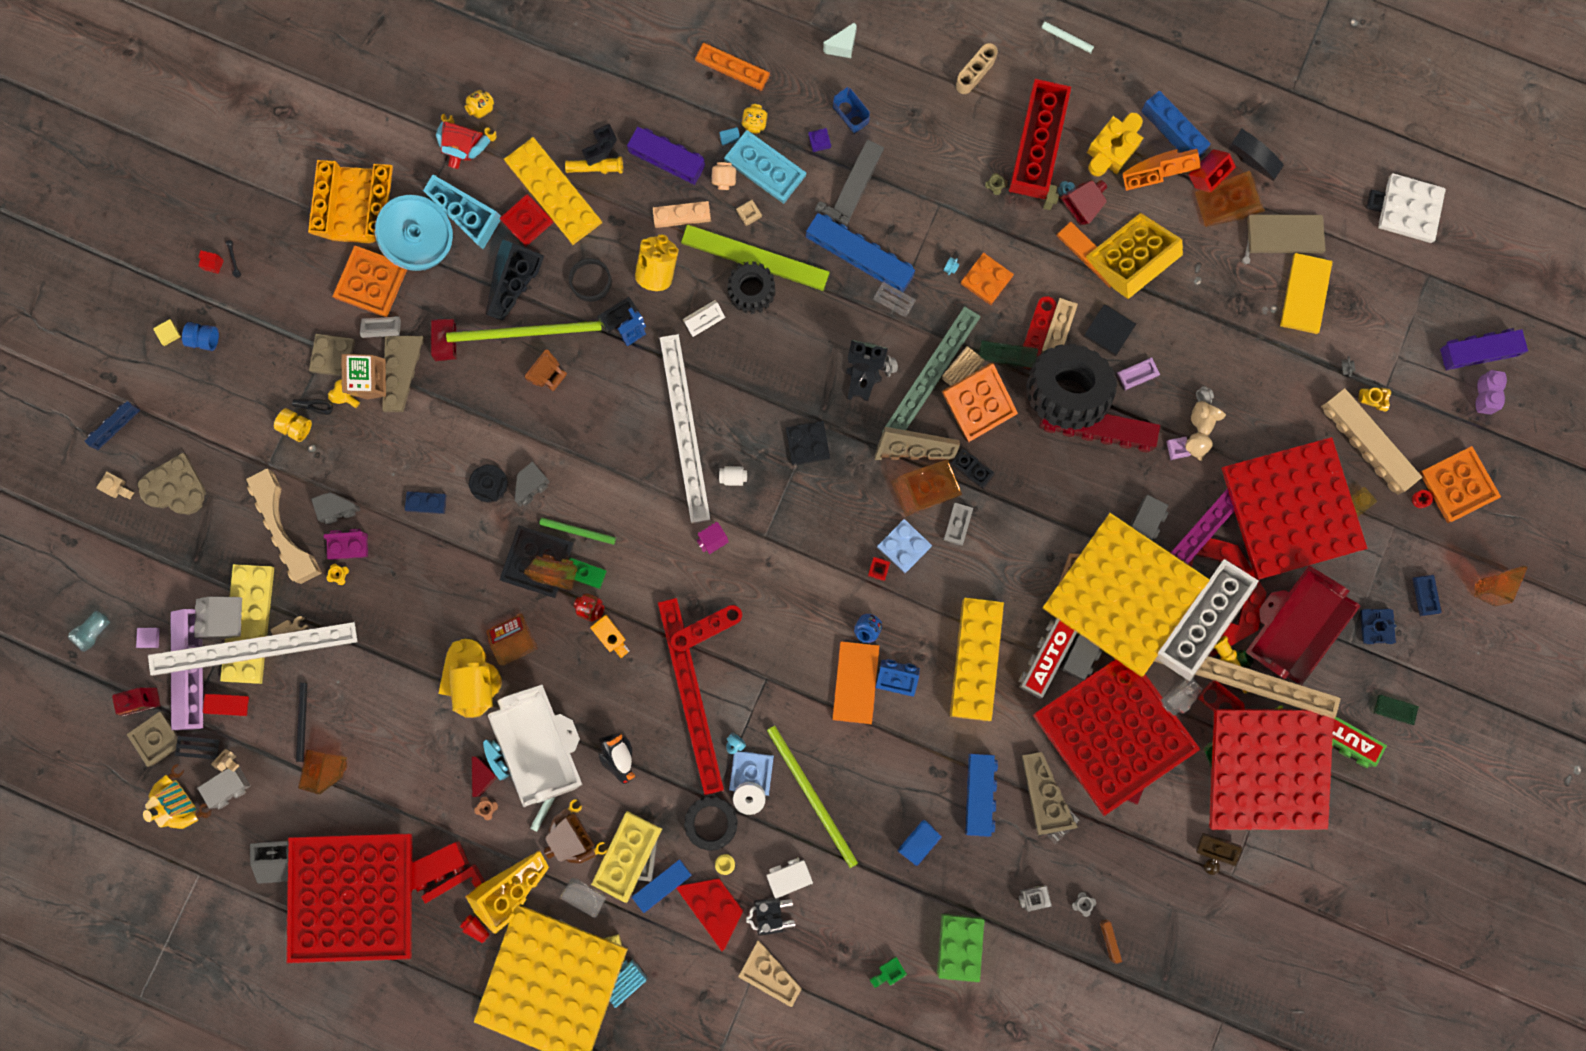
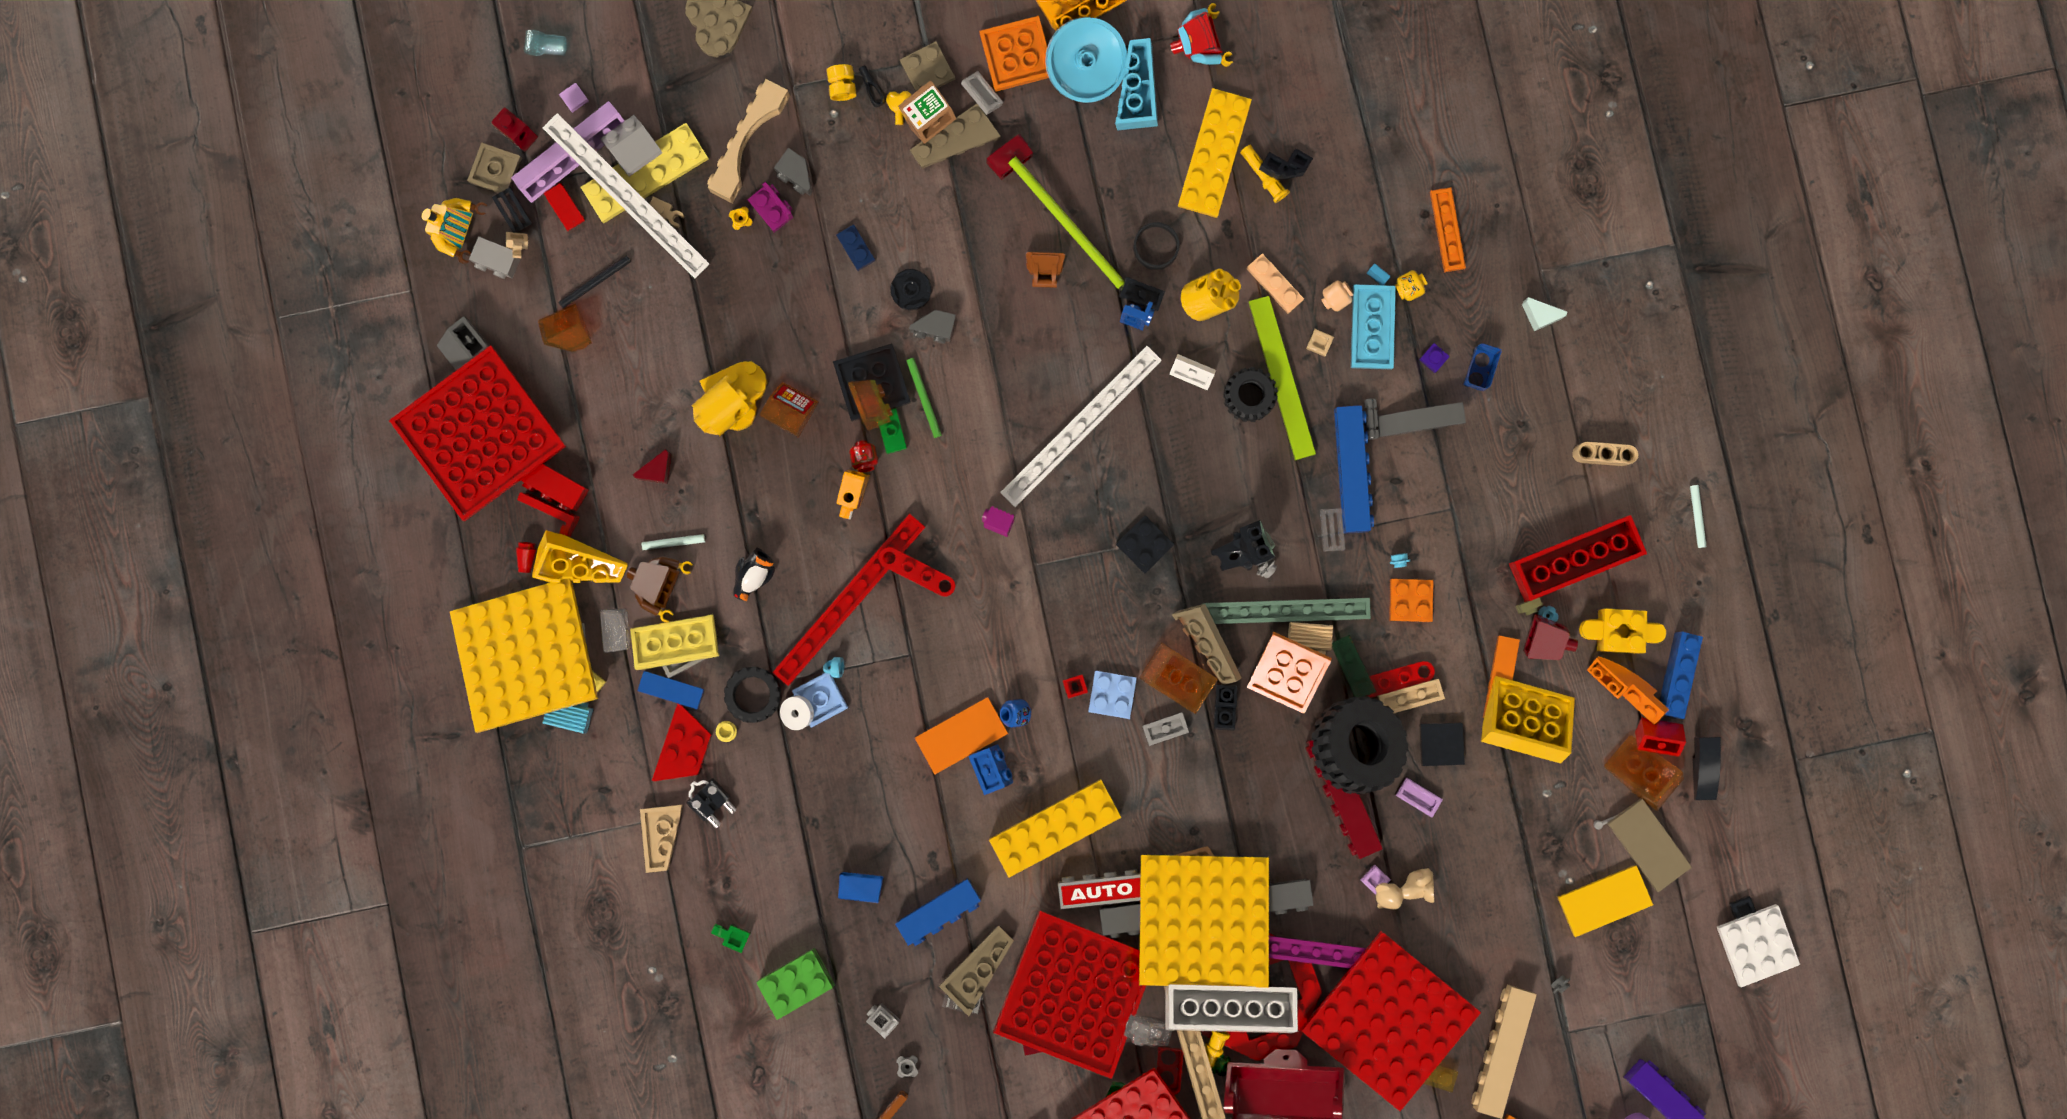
camera: 55 degrees right, 5 degrees up
(479, 104) = (1247, 29): yellow head -> none
(480, 809) = (627, 488): nougat plate -> none
(493, 753) = (681, 464): medium azure slope -> none
(511, 275) = (1113, 172): black wedge -> none
(526, 220) = (1170, 149): red plate -> none
(536, 745) = (712, 498): white piece -> none
(666, 155) = (1319, 230): dark purple brick -> none
(733, 475) = (1068, 499): white brick -> none
(789, 878) = (752, 794): white brick -> none
(812, 797) = (836, 766): lime piece -> none
(996, 178) = (1512, 543): olive plate -> none
(1205, 394) = (1441, 871): light grey plate -> none
(1375, 397) = (1549, 1031): yellow plate -> none

